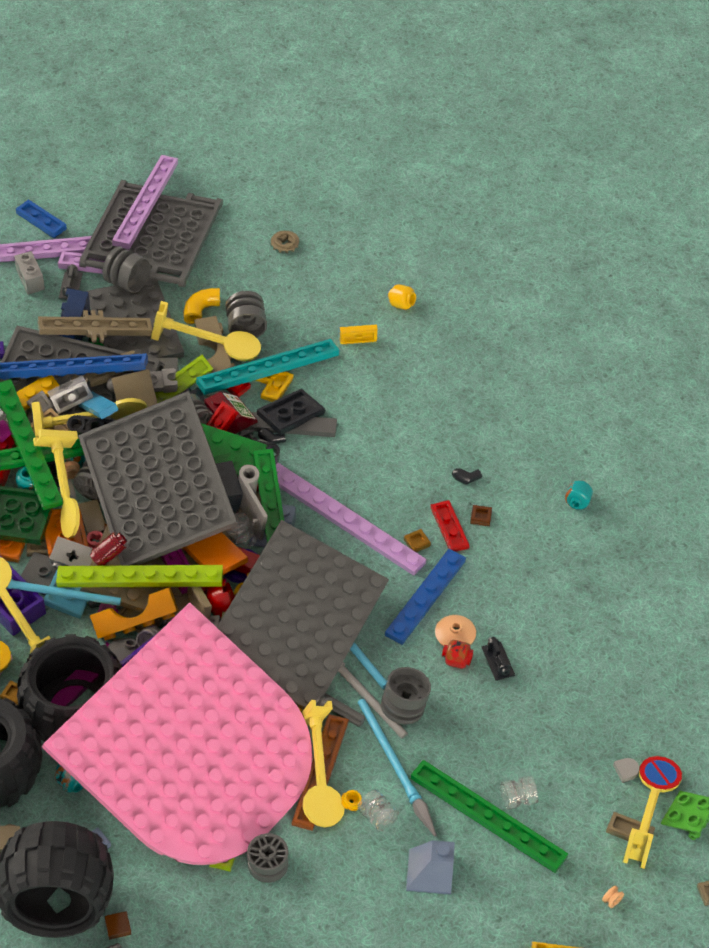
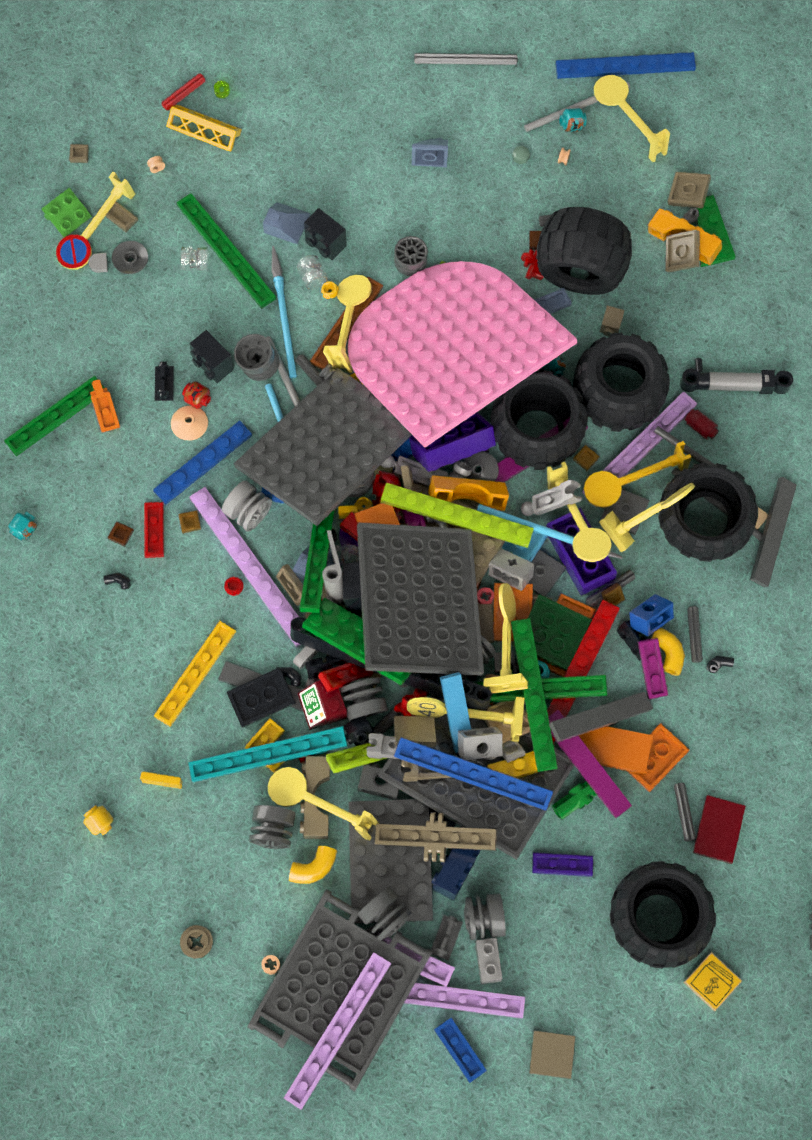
camera: 165 degrees left, 20 degrees up
(37, 294) = (485, 916): none -> dark grey wheel
(41, 621) = (552, 499): none -> light grey plate
(108, 549) = (480, 542): dark red head -> none
(120, 891) = (529, 258): none -> red hips
(216, 240) = (274, 959): none -> light nougat bush
(299, 508) = (290, 583): none -> dark tan tile
(351, 494) = (233, 586): none -> red plate
(360, 421) = (194, 673): none -> yellow tile
(365, 552) = (246, 505): none -> light grey wheel
(376, 850) = (325, 234): none -> black brick
(455, 684) = (211, 357): none -> black brick
(549, 615) = (104, 407): none -> orange hinge
(593, 770) = (129, 250): none -> dark grey dish
(595, 602) = (51, 418): none -> green plate

